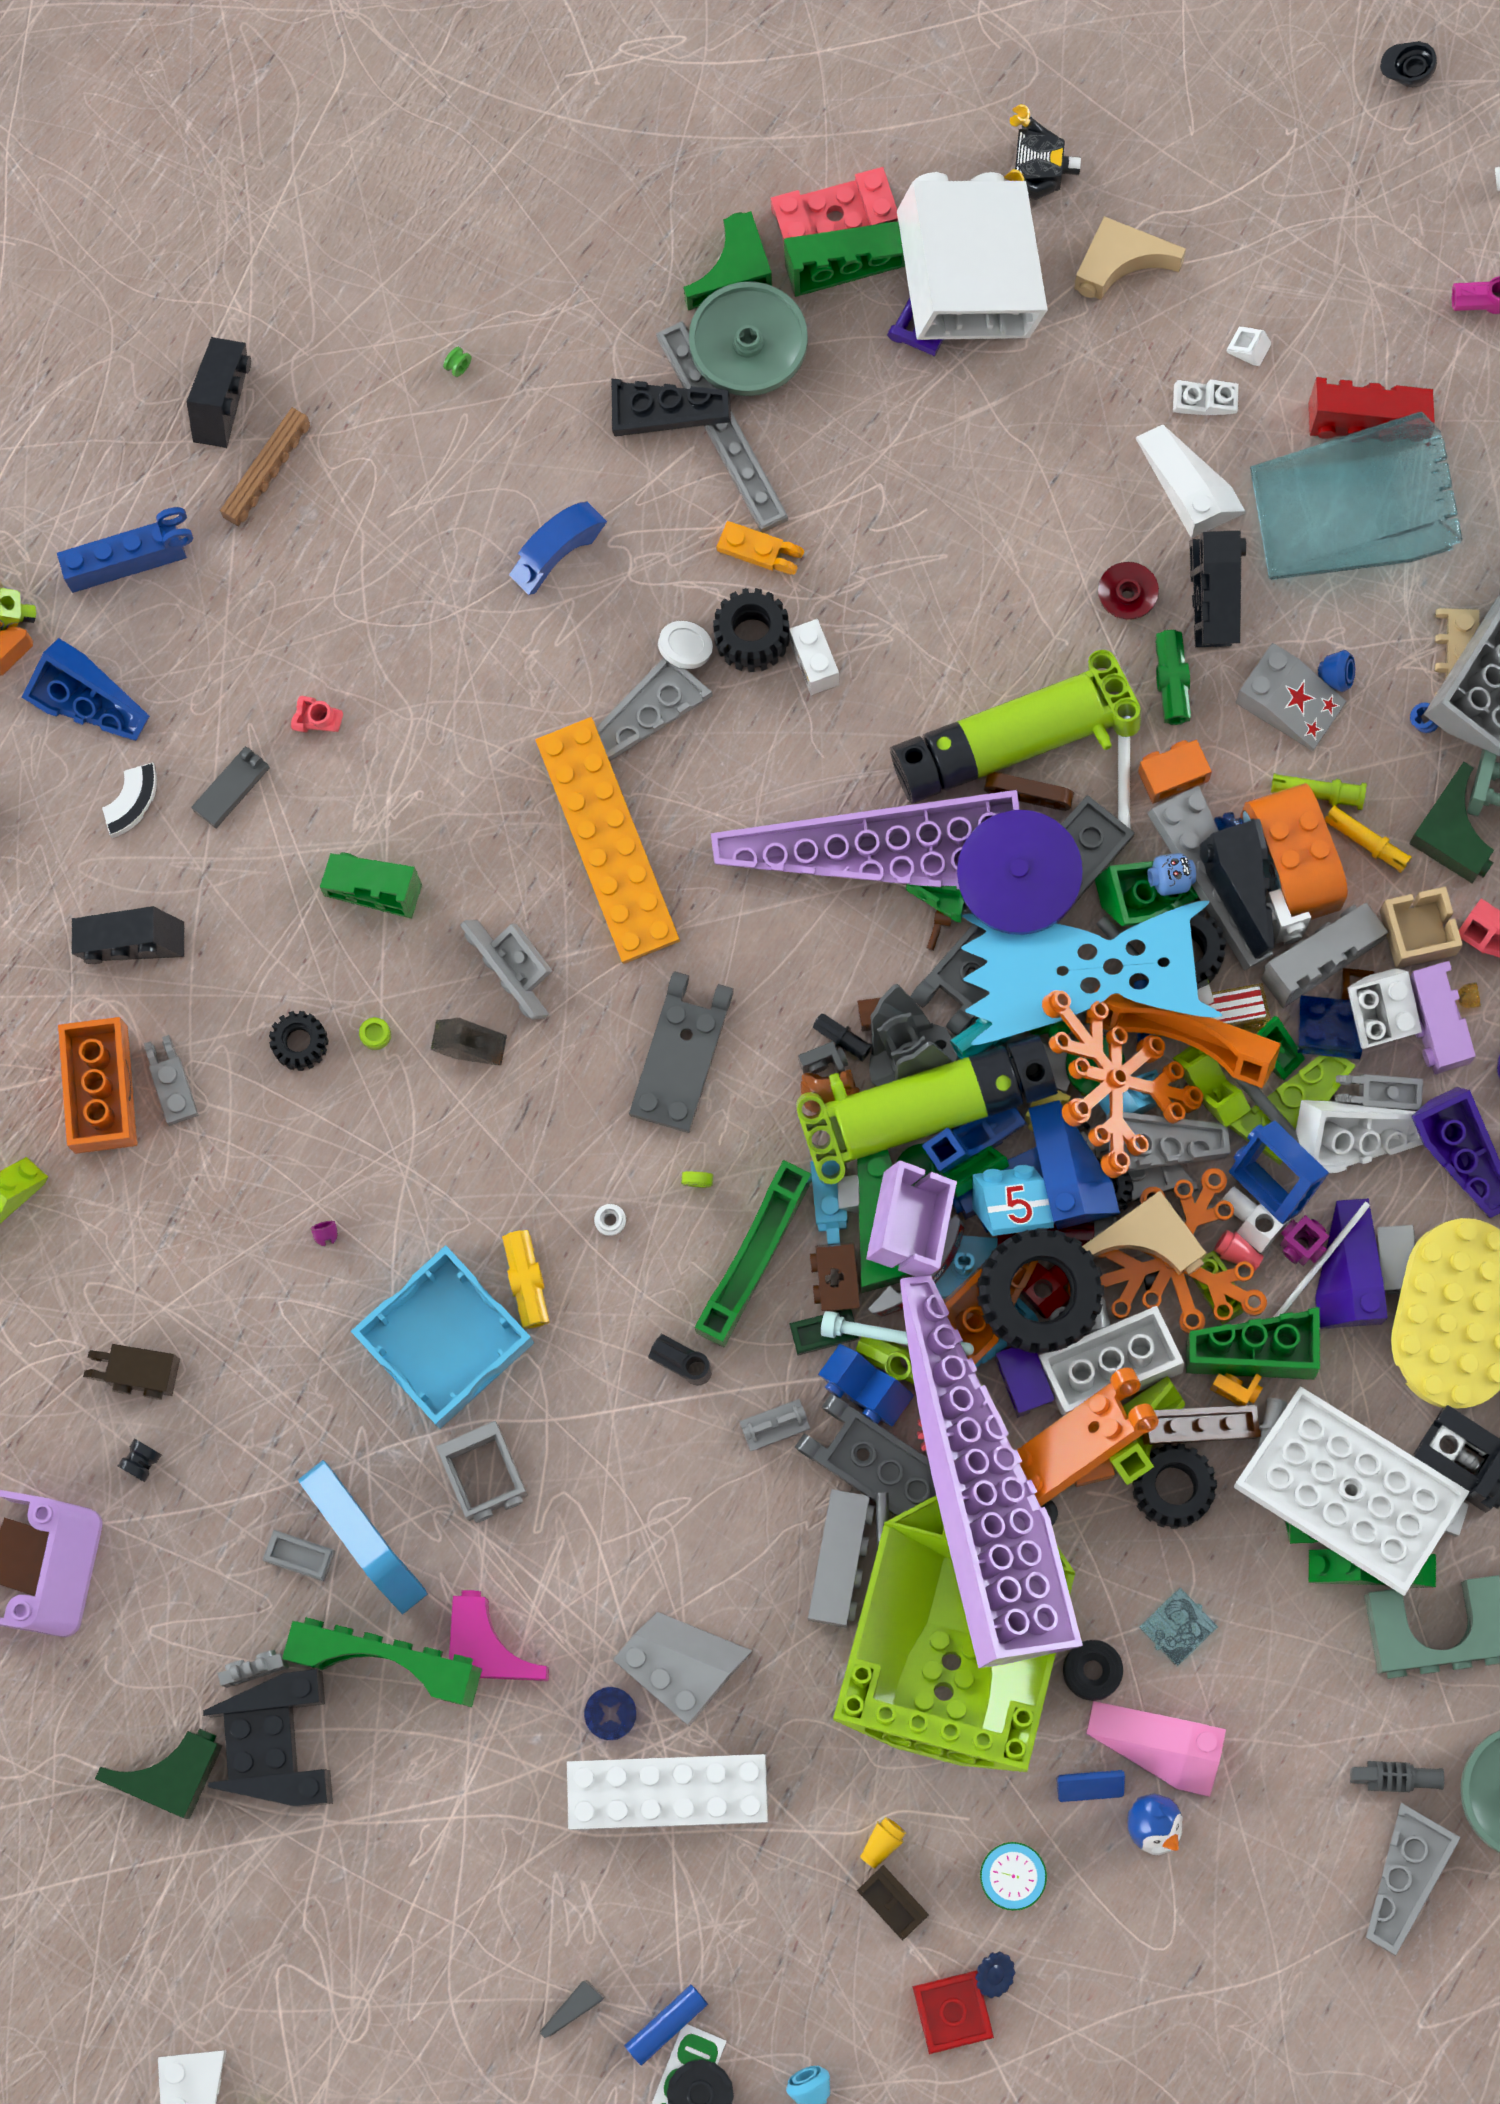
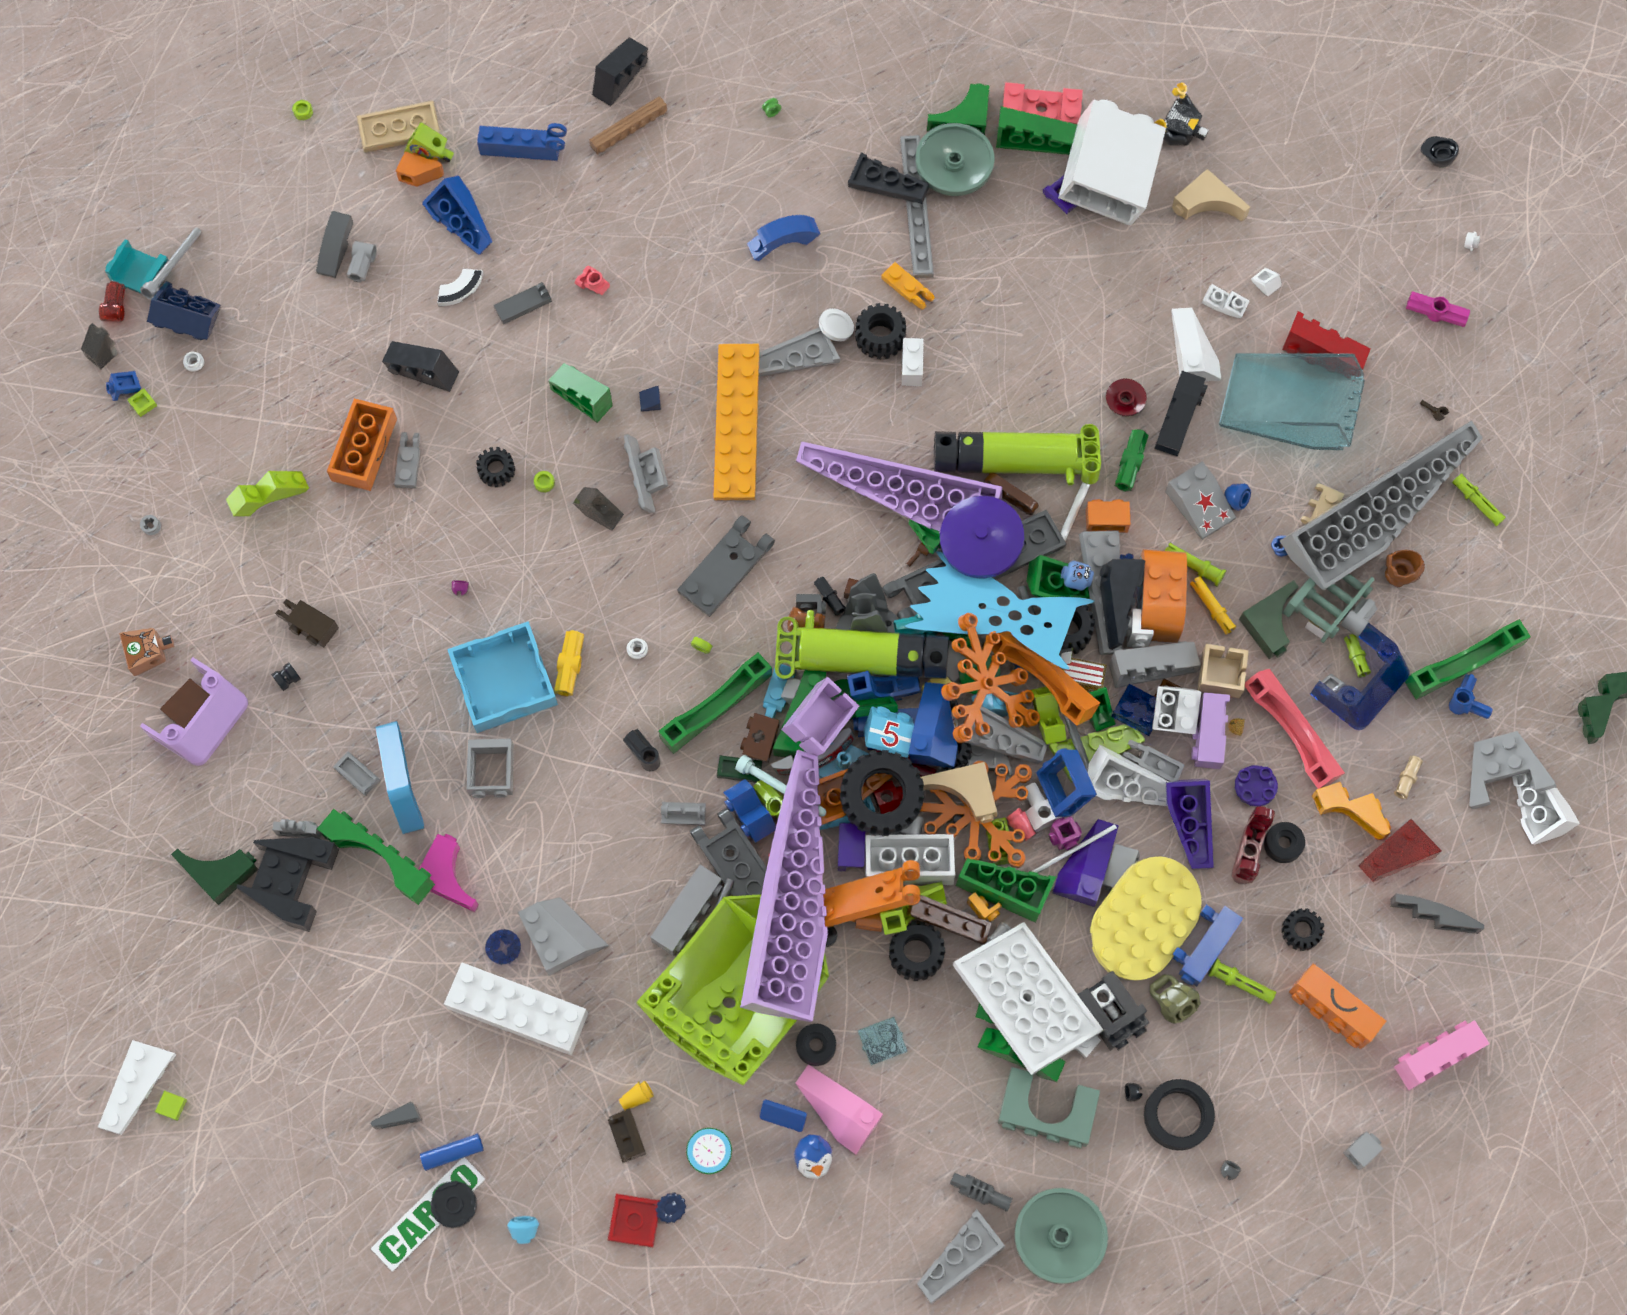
camera: 15 degrees right, 5 degrees down
(472, 855) = (650, 399): none -> dark blue slope

